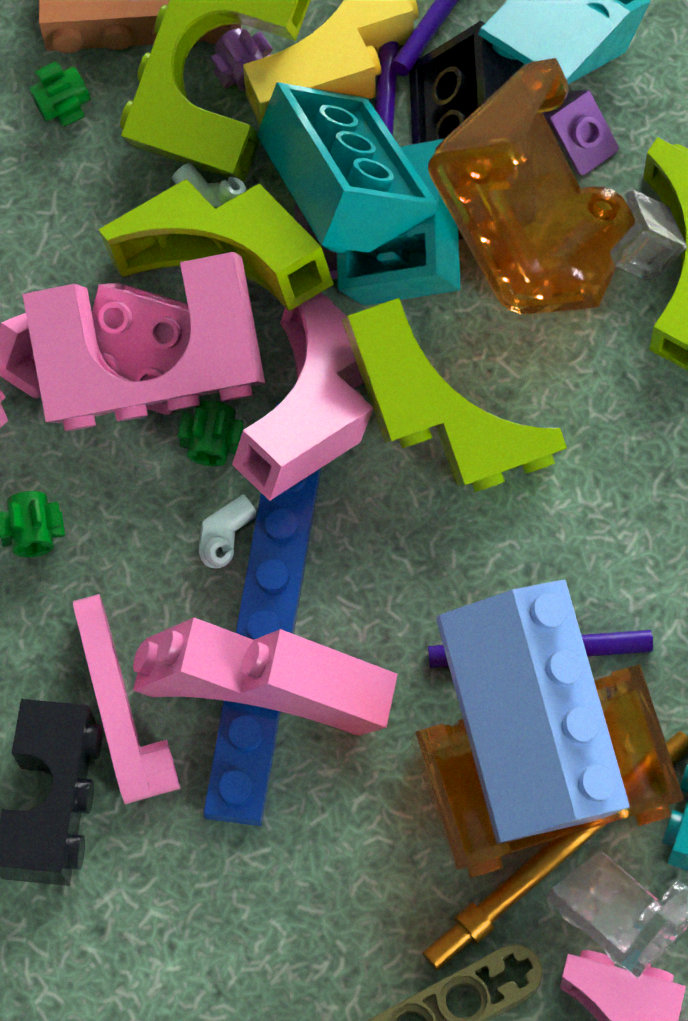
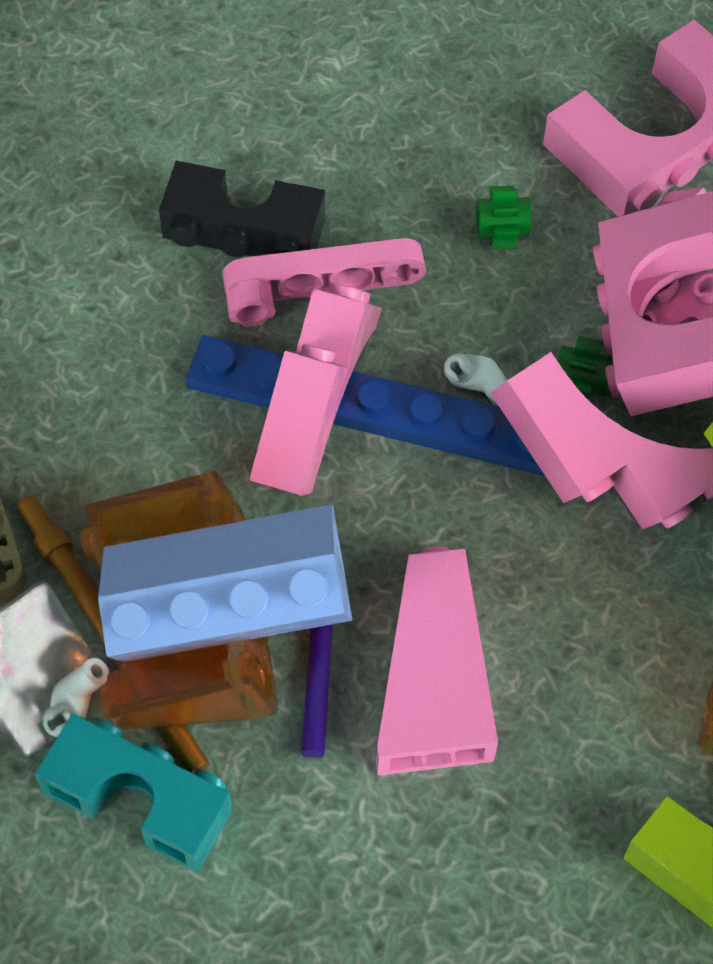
camera: 90 degrees right, 5 degrees down
(413, 397) = (590, 542): lime arch -> none
(572, 531) = (437, 679): none -> bright pink slope
(640, 866) = (74, 694): none -> light aqua arm

